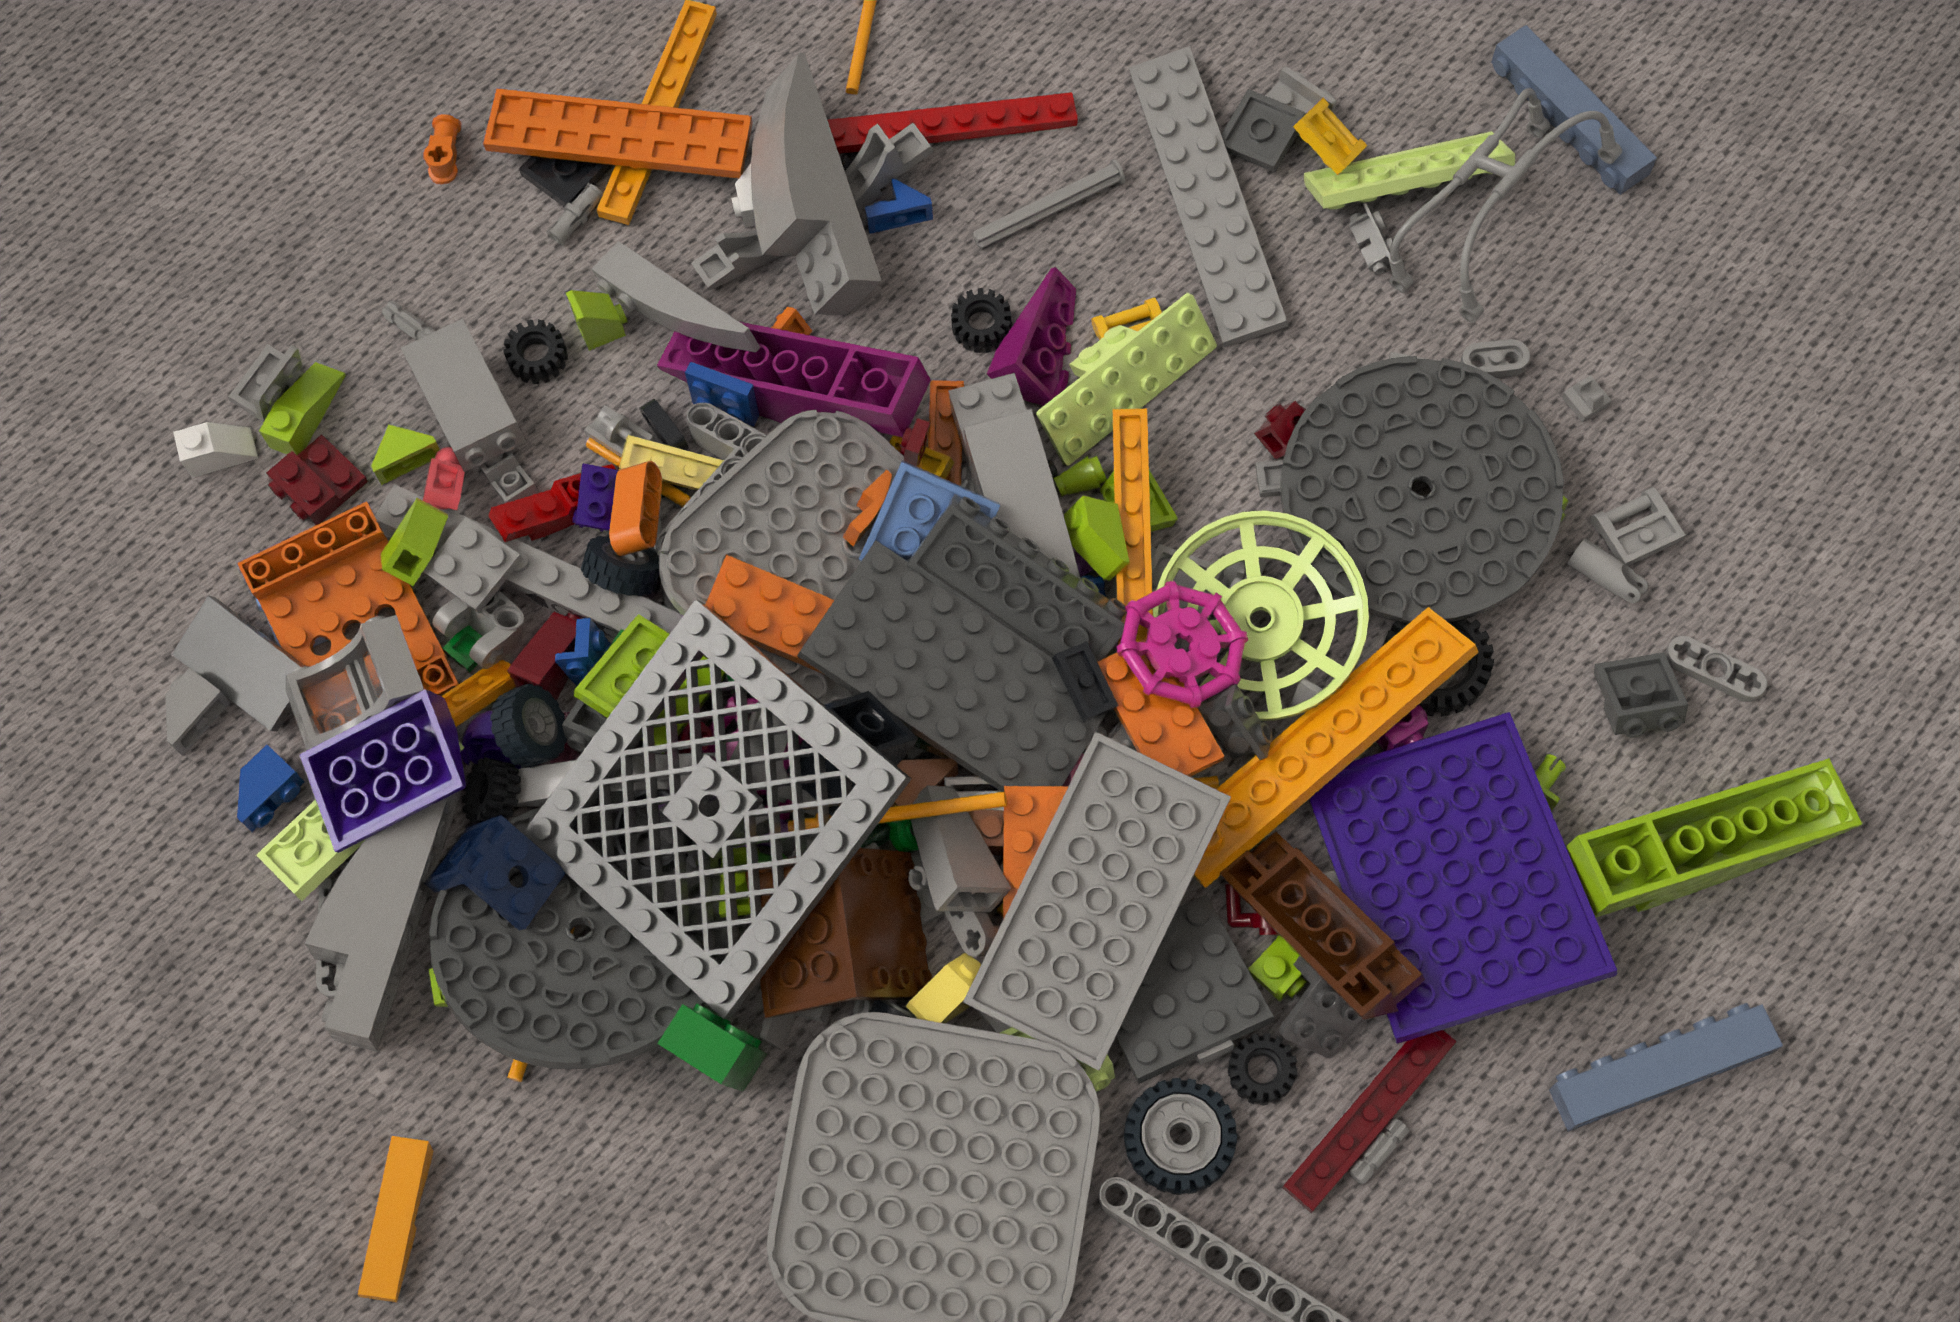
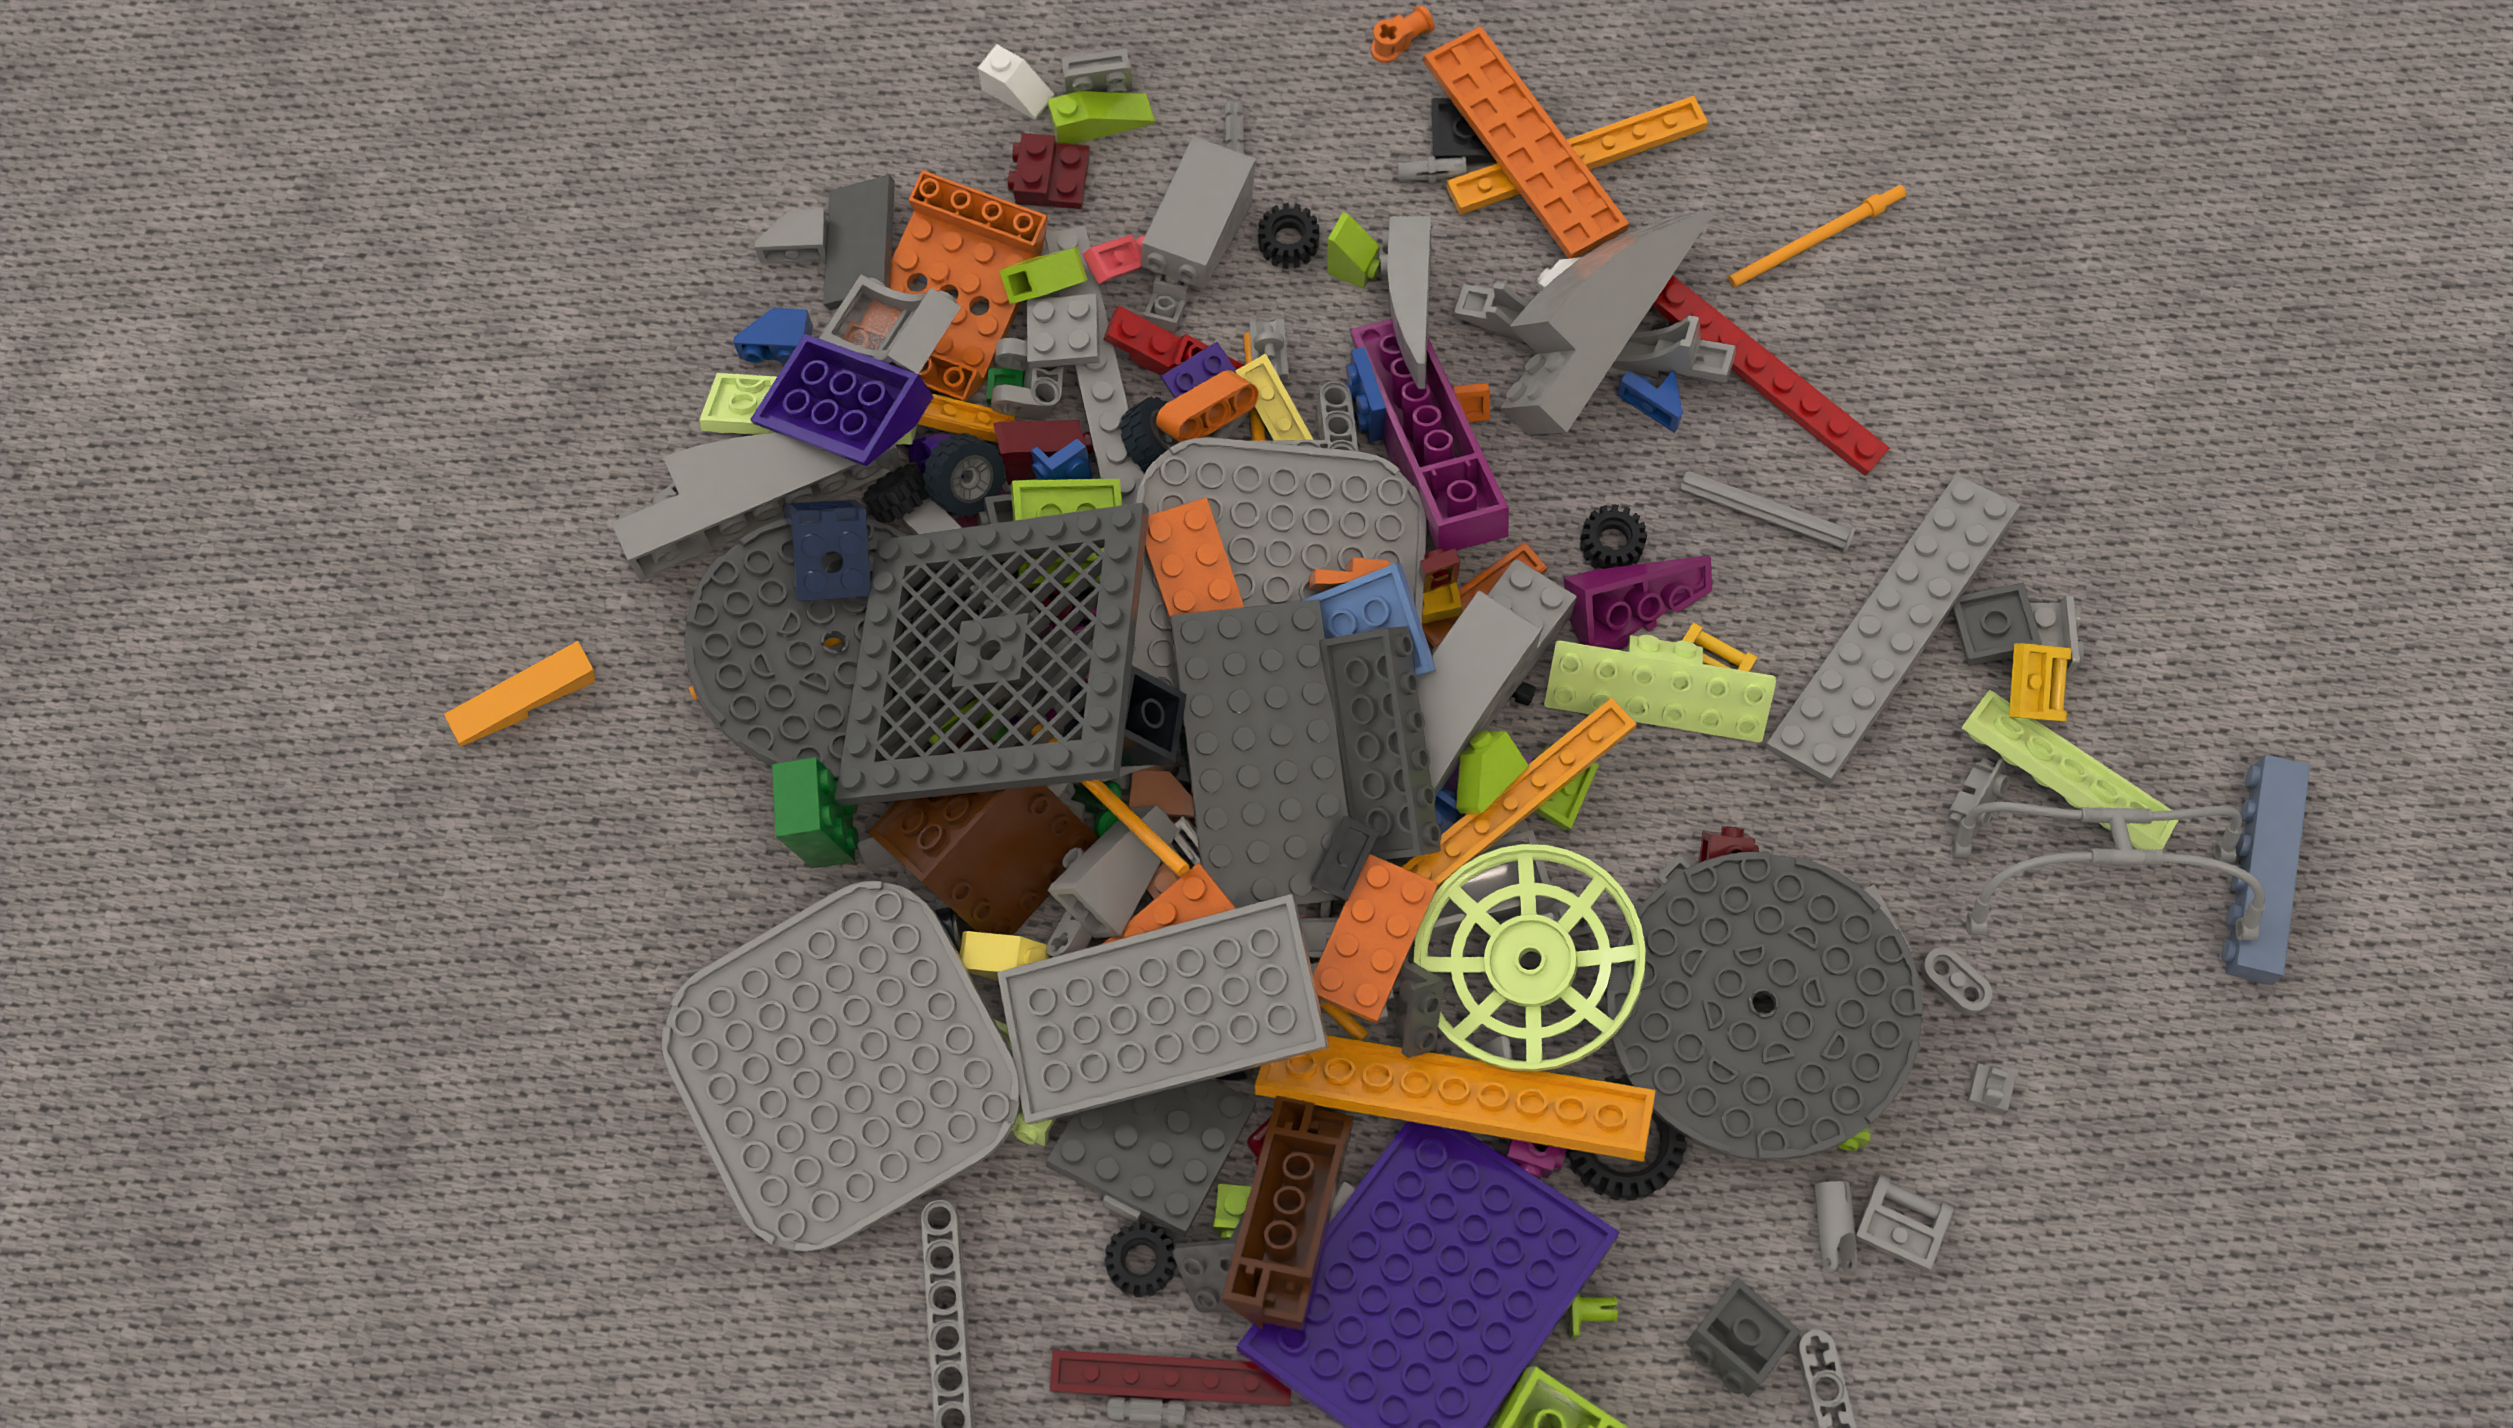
camera: 50 degrees right, 0 degrees up
(402, 452) = (1119, 210): lime slope -> none
(662, 425) = (1306, 377): black beam -> none
(1081, 477) = (1541, 723): lime cone -> none
(1176, 1166) = (1009, 1212): wheel -> none
(1196, 630) = (1462, 900): dark pink plate -> none

